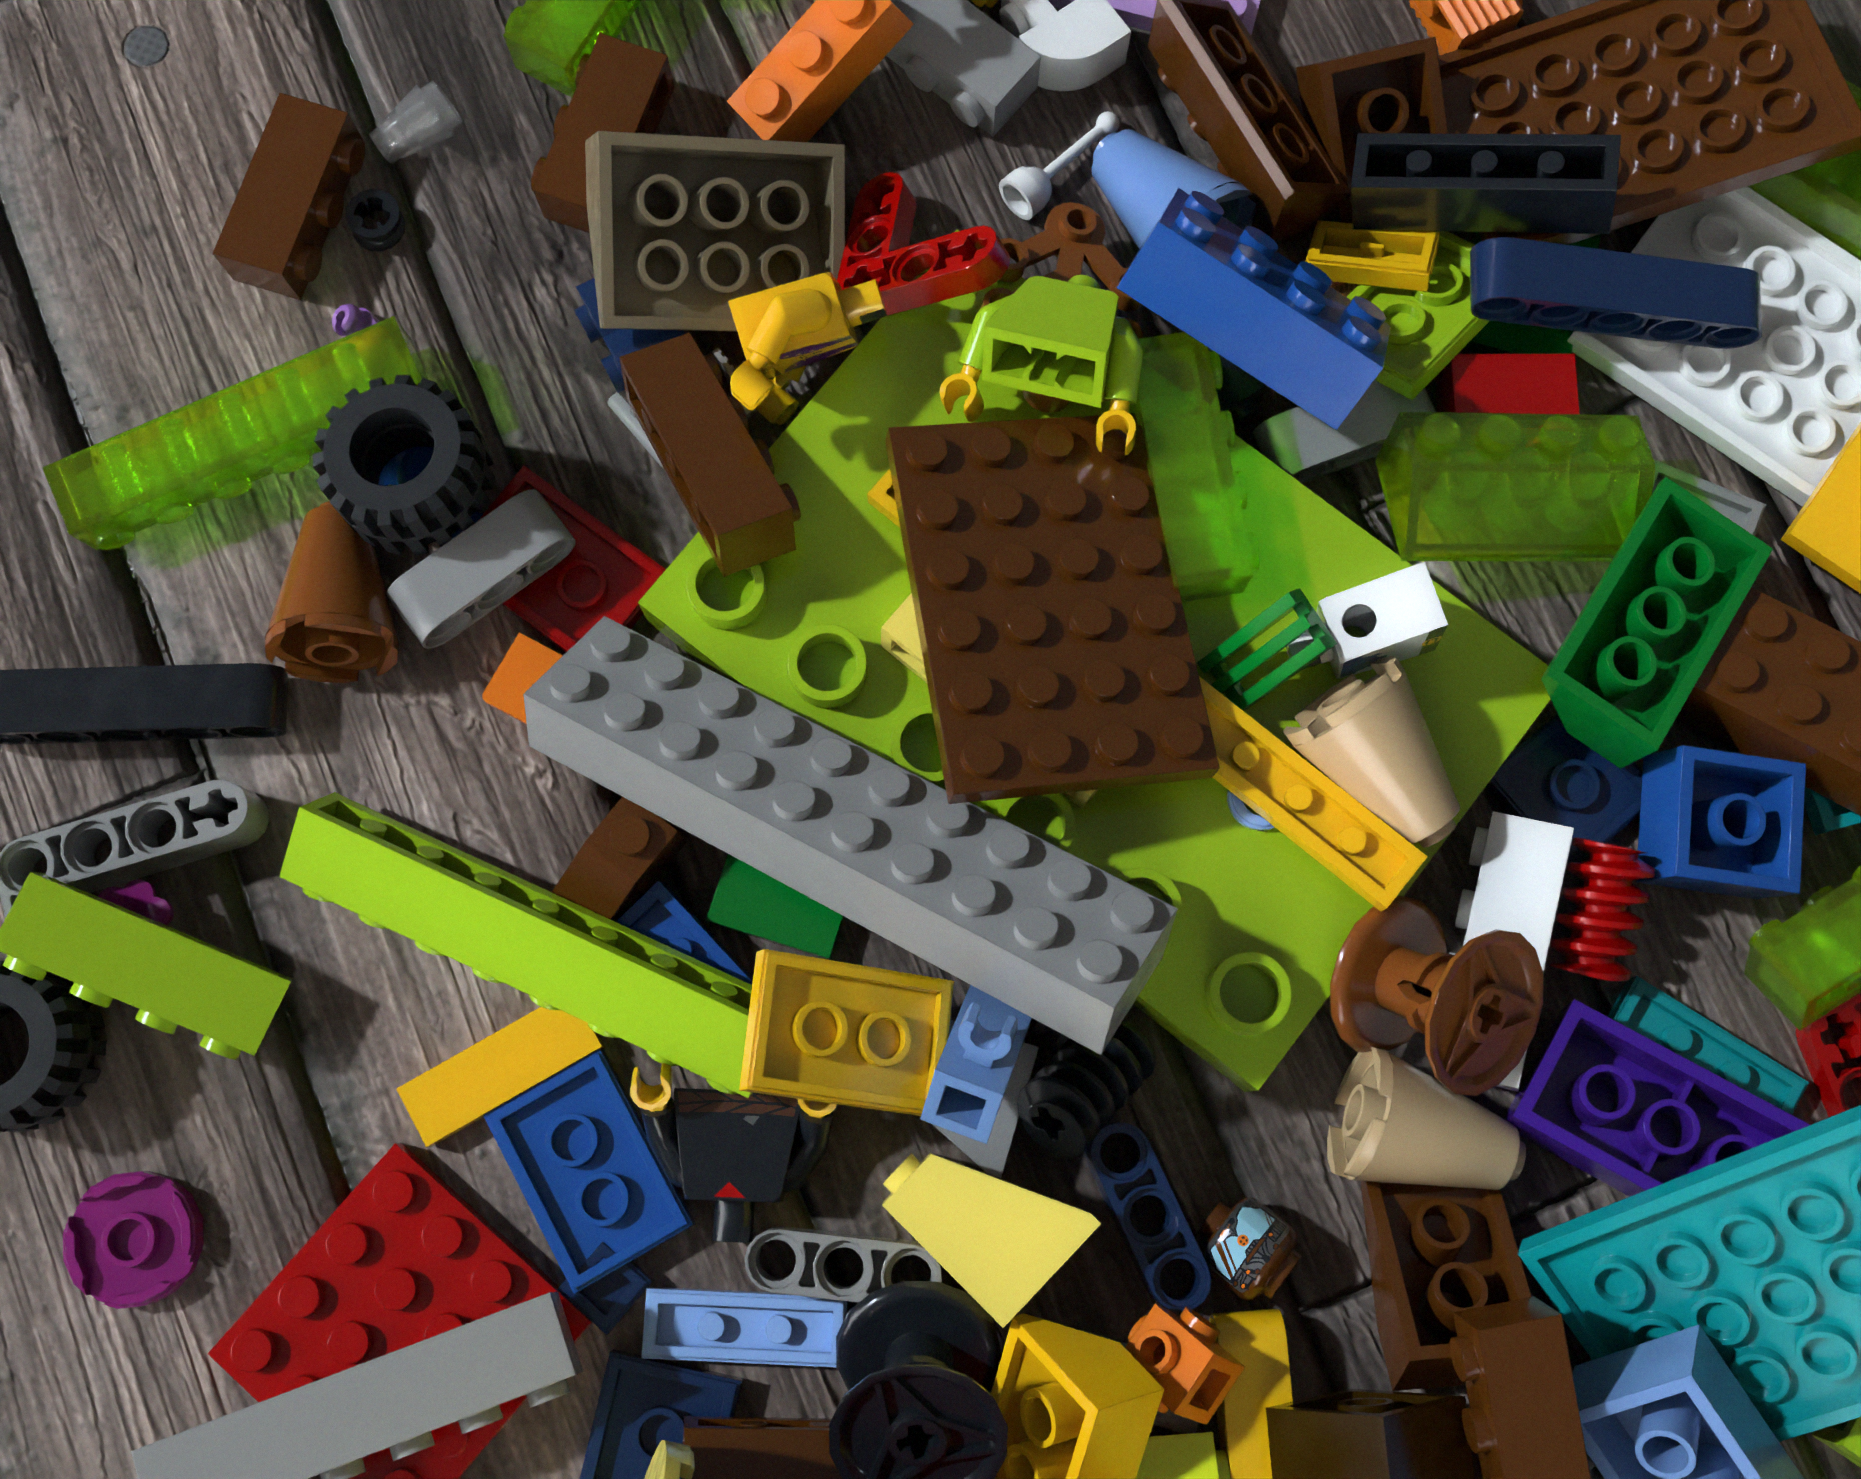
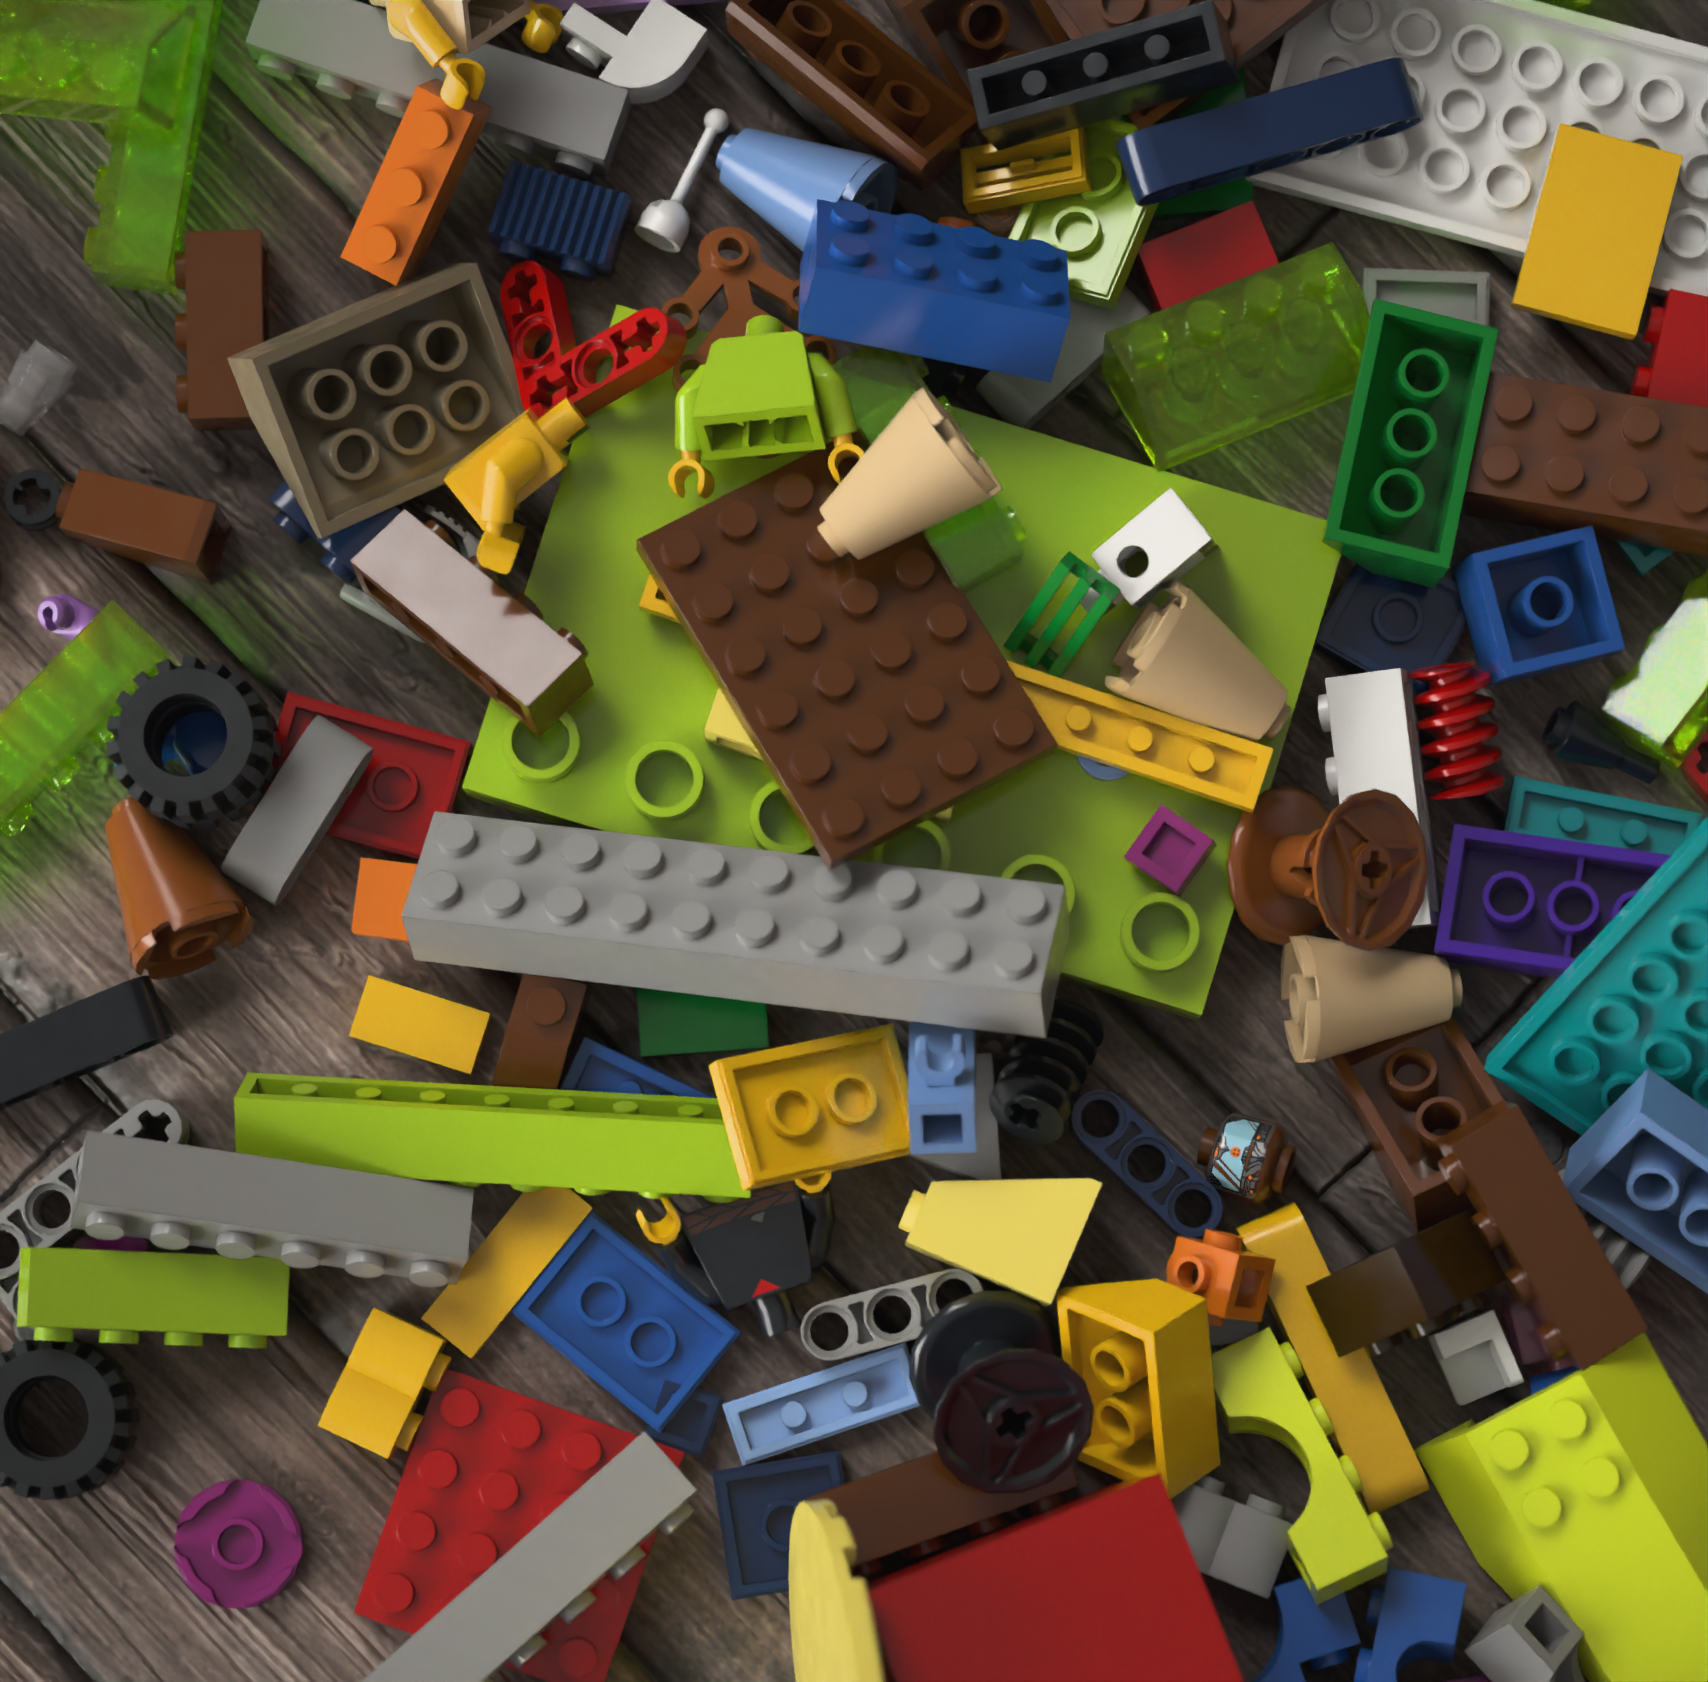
camera: 20 degrees left, 5 degrees up
(284, 925) = (272, 1209): none -> light grey brick
(332, 1139) = (384, 1384): none -> yellow brick
(461, 271) = (145, 524): none -> reddish brown slope
(515, 812) = (420, 1025): none -> yellow tile
(936, 151) = (560, 222): none -> dark blue brick
(1168, 461) = (906, 481): none -> tan cone
(1288, 917) = (1170, 850): none -> magenta plate
(1716, 964) = (1584, 739): none -> black cone

